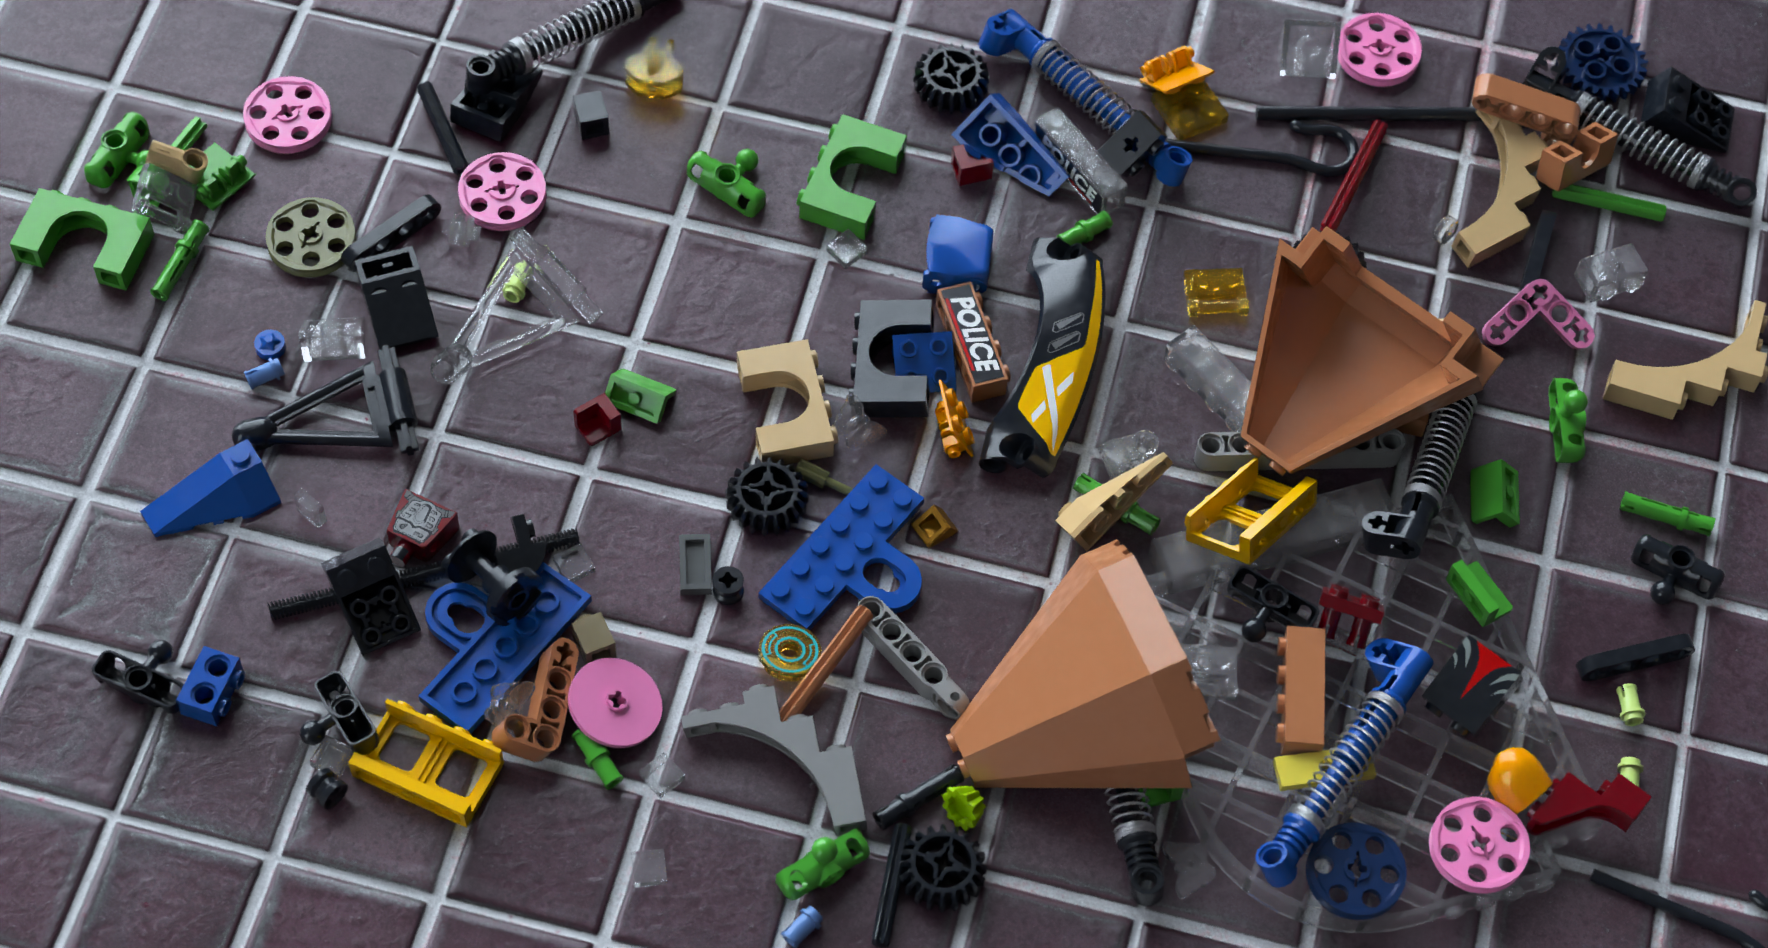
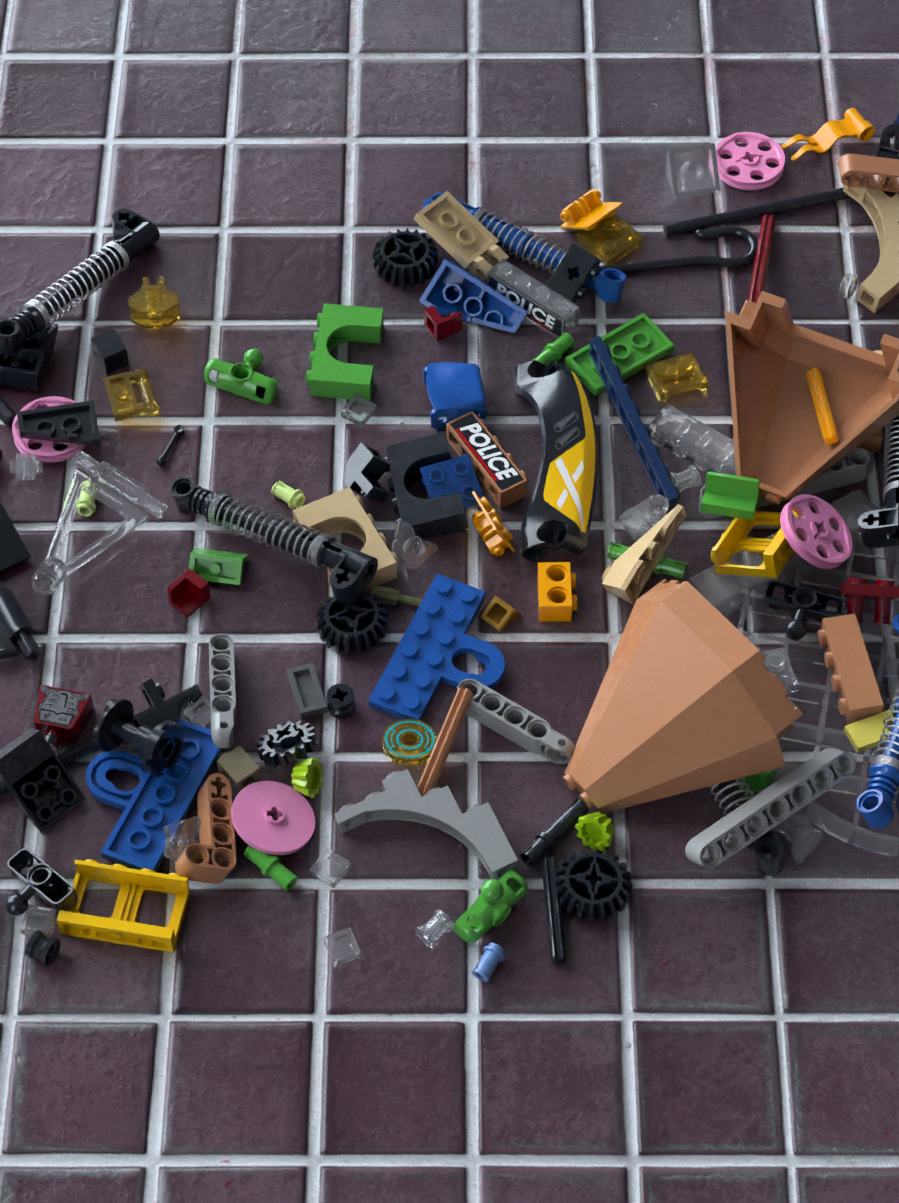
camera: 10 degrees left, 5 degrees down
(513, 189) = (61, 423): none -> black wing
(590, 171) = (123, 398): none -> clear yellow plate
(603, 531) = (222, 690): none -> light grey piece
(641, 225) = (178, 431): none -> black hinge
(654, 622) = (287, 744): none -> black gear
(666, 666) = (308, 777): none -> lime piece
(744, 335) = (292, 497): none -> yellowish green pin
(754, 873) = (434, 928): none -> clear bush
(780, 436) = (321, 549): none -> black piece
(830, 324) = (363, 472): none -> black brick
(997, 515) = (555, 586): none -> light orange brick
(1018, 67) = (461, 235): none -> tan tile
(1147, 328) = (630, 418): none -> dark blue plate
(1147, 829) = (757, 809): none -> light grey beam
(1159, 250) = (631, 348): none -> bright green plate
(1187, 418) = (686, 478): none -> clear bush
(1228, 454) = (730, 495): none -> bright green panel
(1301, 517) = (807, 528): none -> bright pink wedge
(1365, 372) = (822, 406): none -> light orange axle
(1486, 35) = (832, 131): none -> light orange flag

